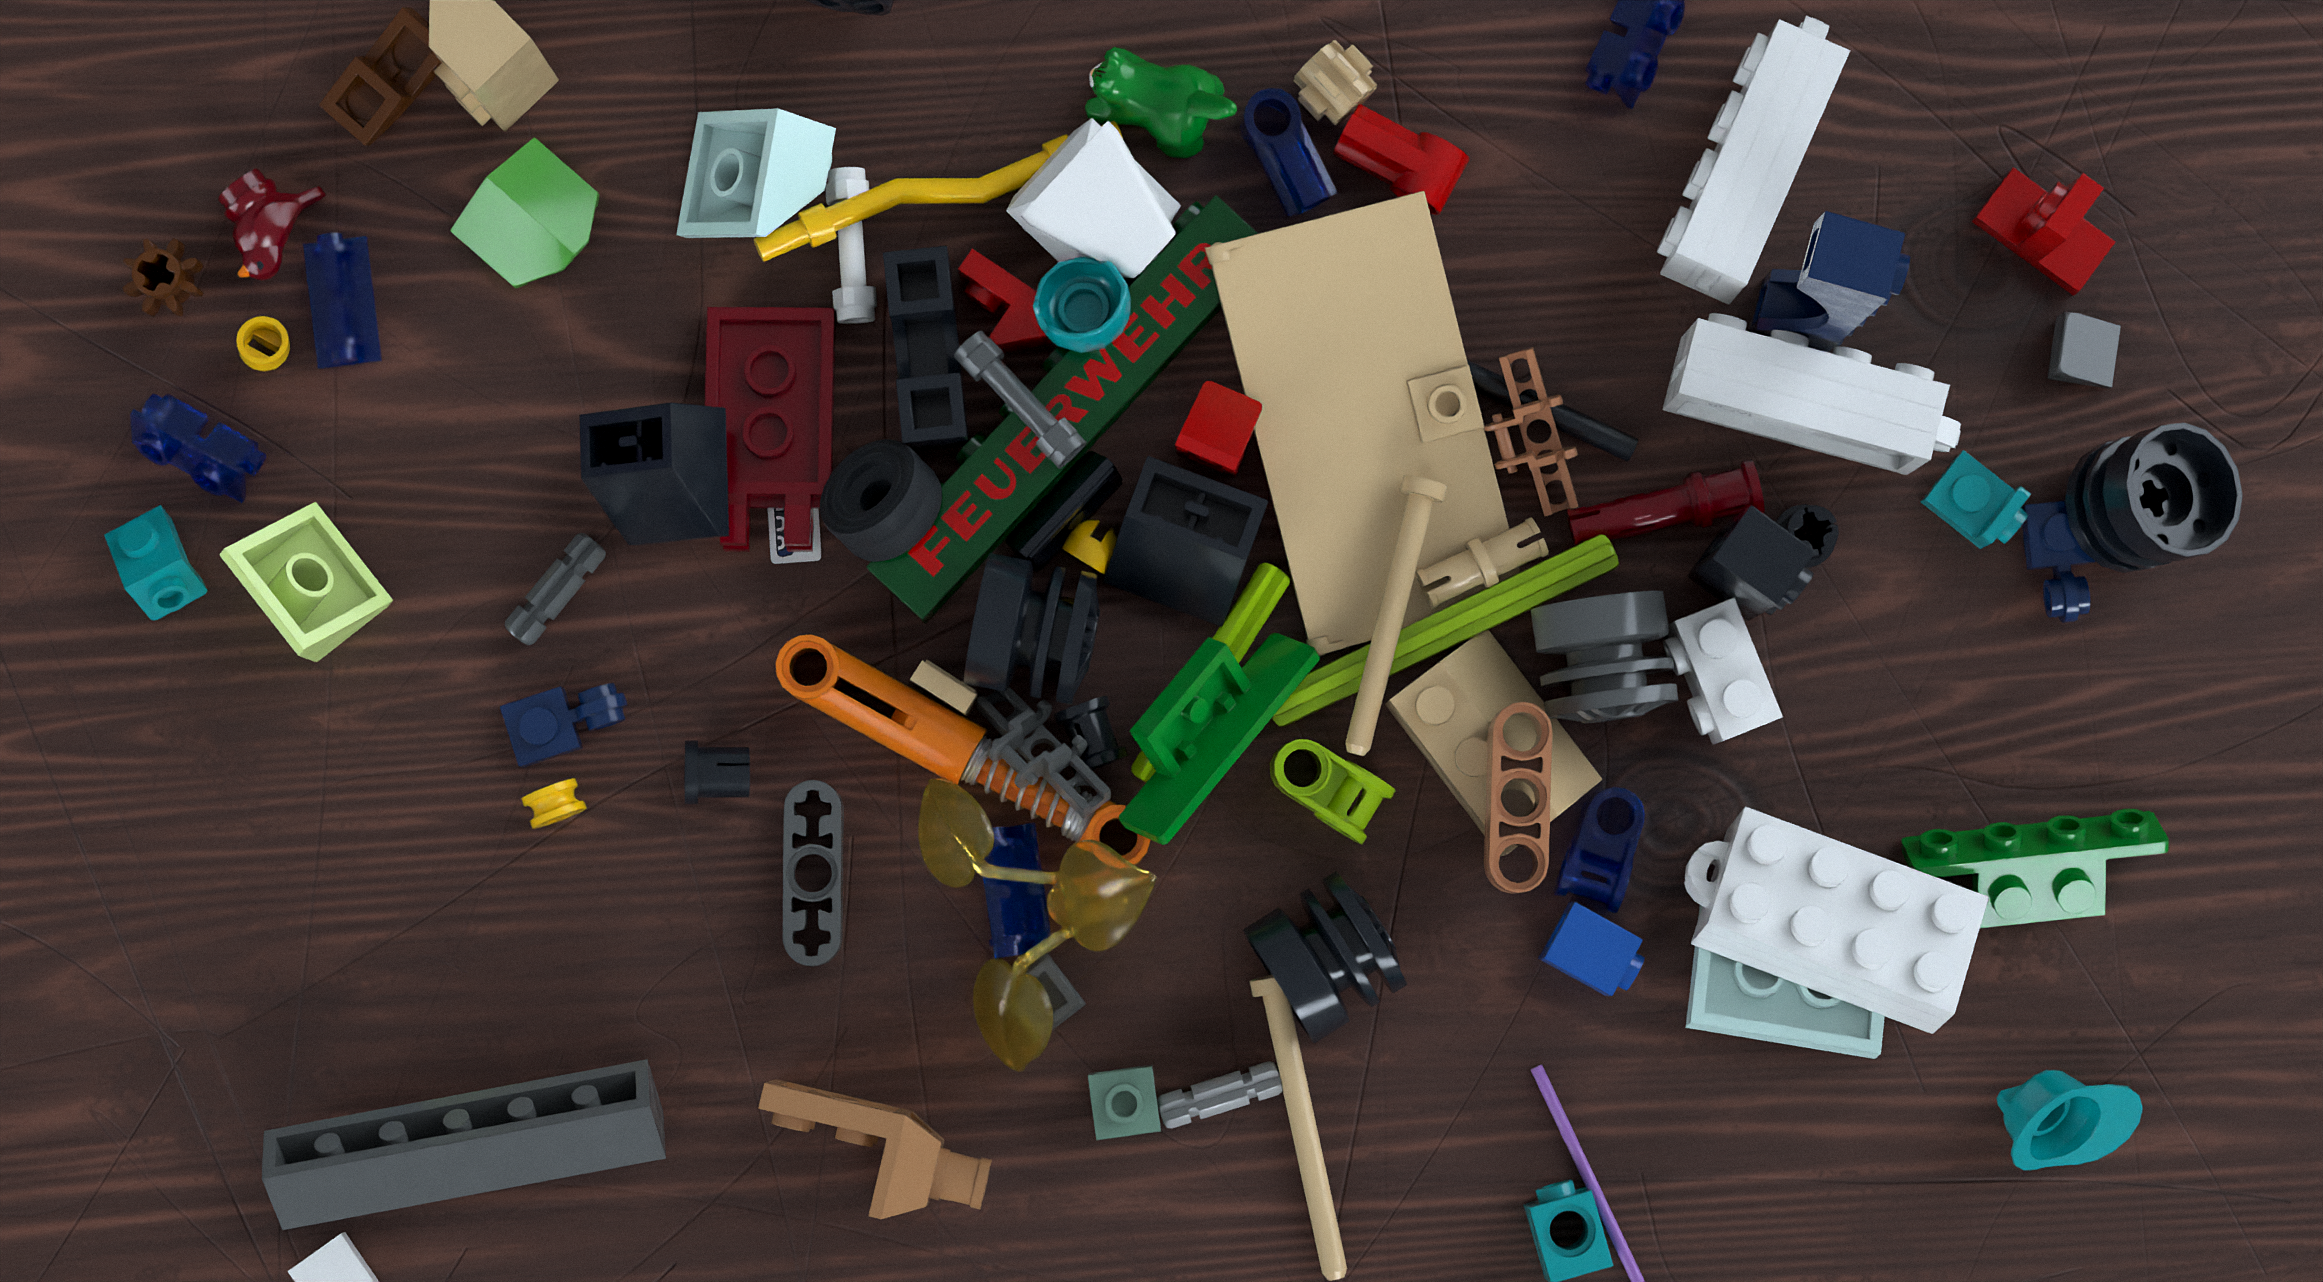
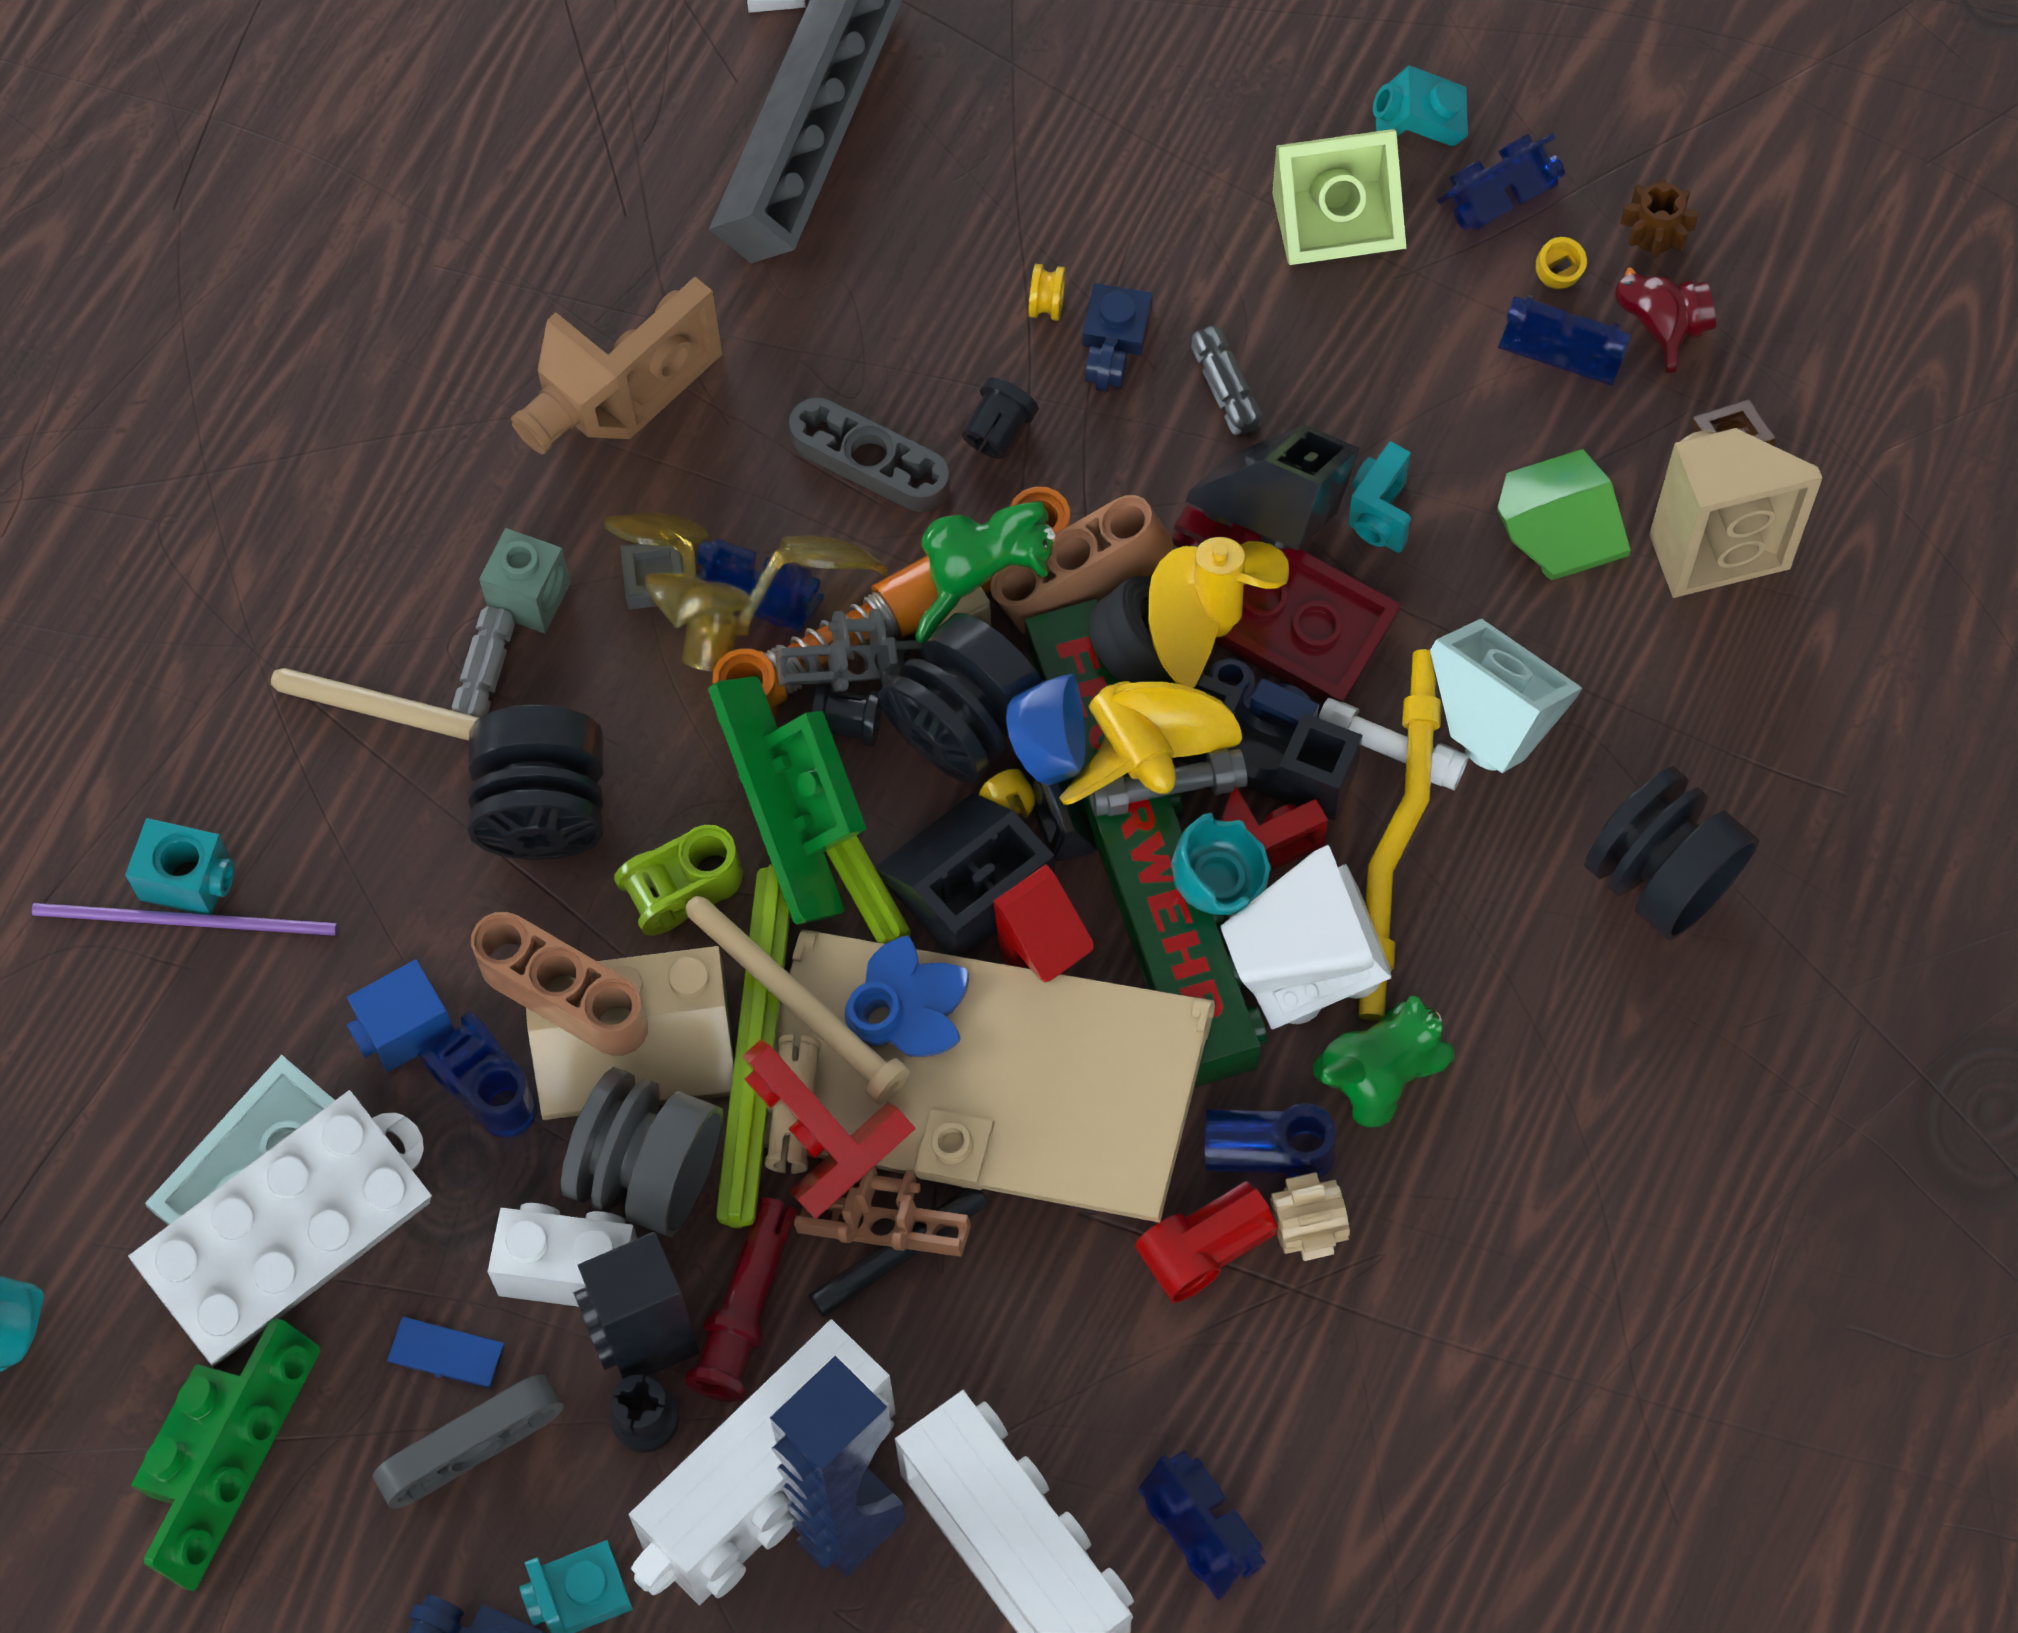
camera: 125 degrees right, 20 degrees down
(599, 388) = (1375, 490): none -> teal bracket
(828, 463) = (1200, 597): none -> yellow piece
(850, 626) = (1087, 561): none -> nougat beam
(875, 354) = (1270, 702): none -> dark blue plate
(897, 690) = (970, 553): none -> green animal
(1013, 436) = (1146, 729): none -> yellow piece
(1038, 519) = (1049, 729): none -> blue piece
(1334, 507) = (917, 1001): none -> blue plate
(1516, 489) = (819, 1131): none -> red bracket
(1843, 733) = (446, 1352): none -> blue window
(1913, 659) = (467, 1441): none -> dark grey beam

